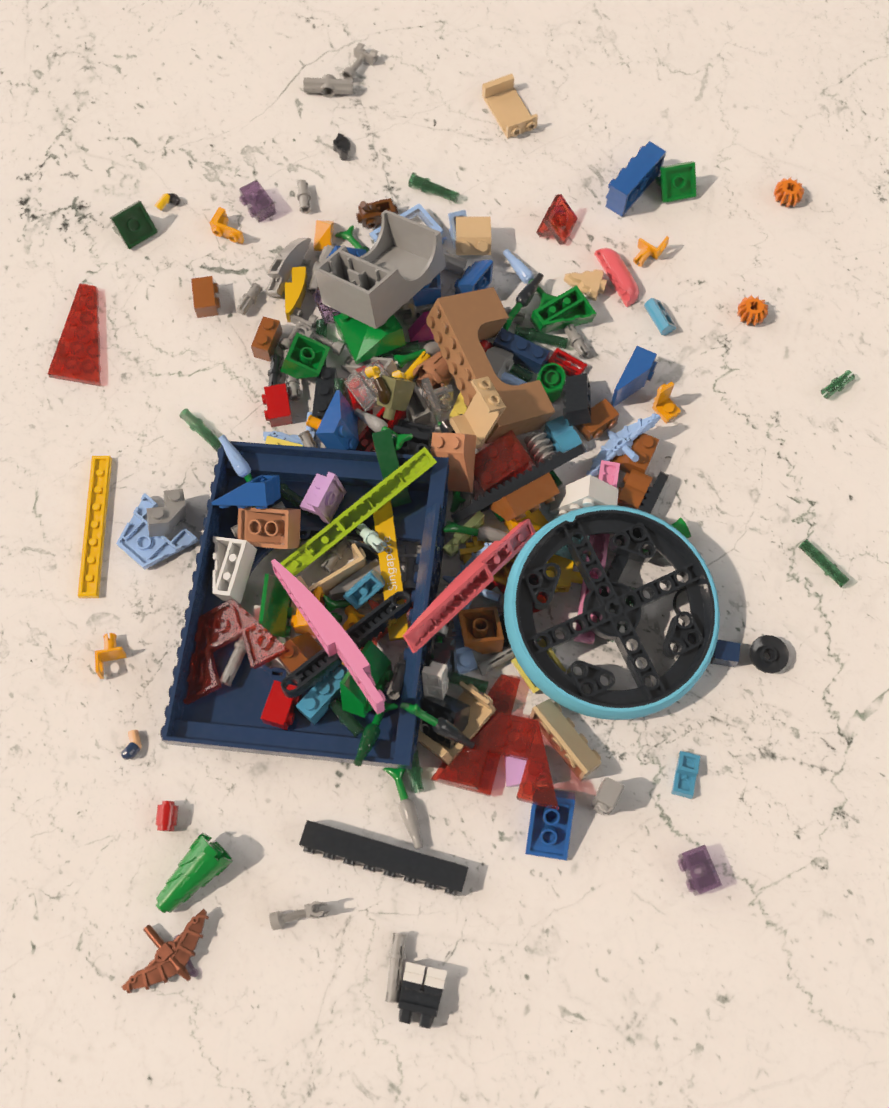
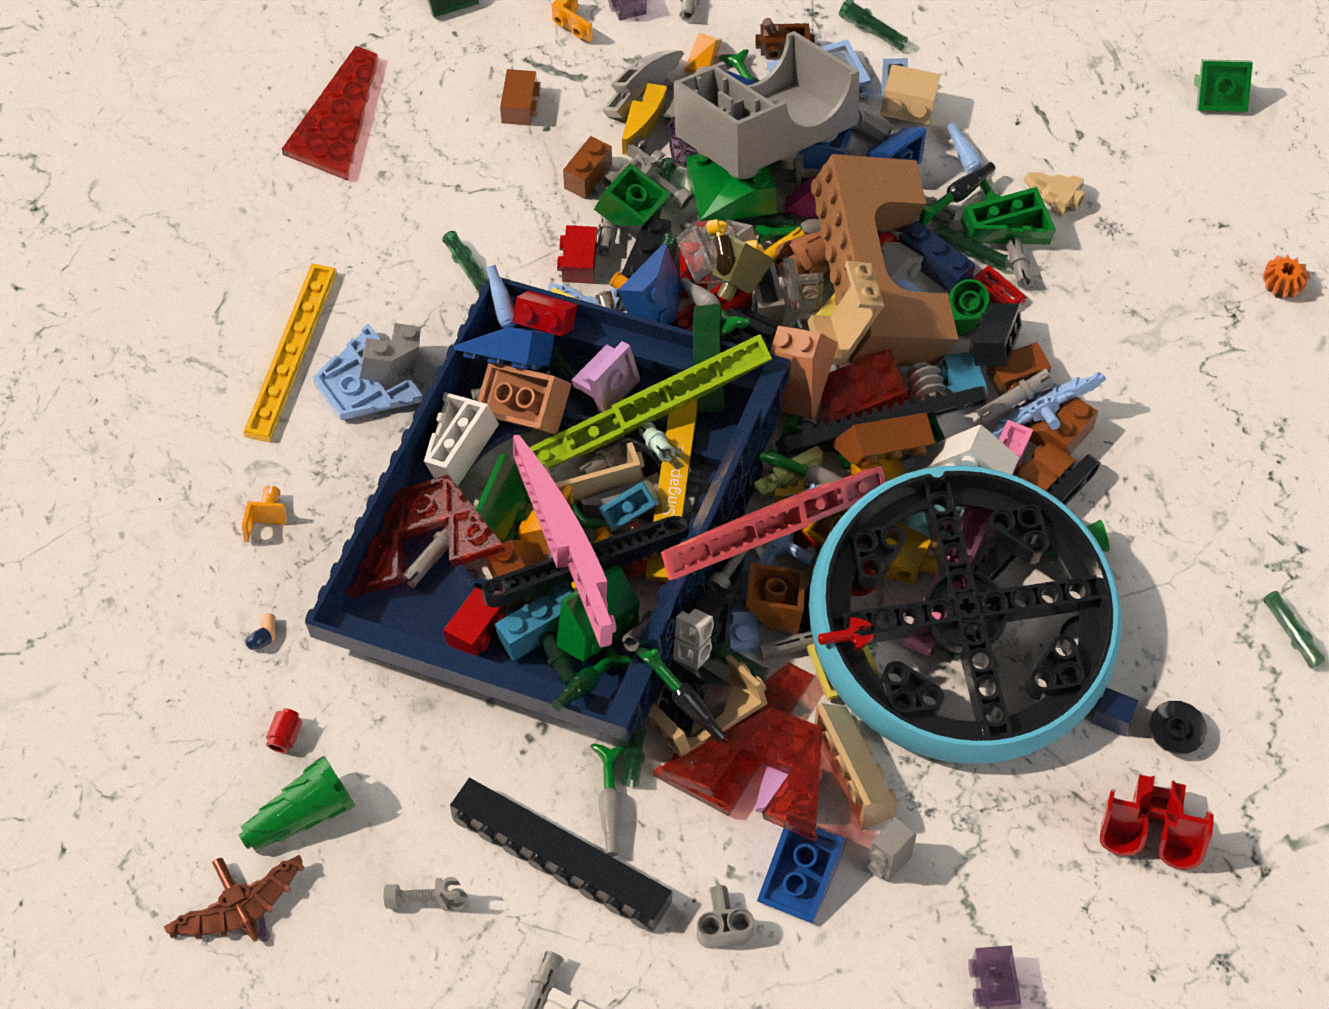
camera: 15 degrees right, 10 degrees down
(249, 298) = (578, 112): light grey axle -> none
(268, 461) = (544, 313): none -> red brick
(274, 372) = (586, 212): black pin -> none
(507, 875) = (723, 920): none -> light grey beam
(521, 373) = (926, 284): clear green pin -> none
(541, 653) = (849, 634): none -> red bar
(558, 220) = (1037, 100): clear red bracket -> none
(606, 435) = (1015, 396): none -> light grey pin
(618, 275) = (1105, 191): coral brick -> none
(635, 178) = (1162, 68): blue brick -> none
(637, 372) = (1086, 322): blue slope -> none
(649, 250) = (1156, 166): light orange bracket -> none
(659, 316) = (1148, 256): dark azure brick -> none
(664, 405) = (1119, 368): light orange bracket -> none
(685, 774) = (1013, 856): dark azure slope -> none
(756, 737) = (1182, 838): none -> red piece

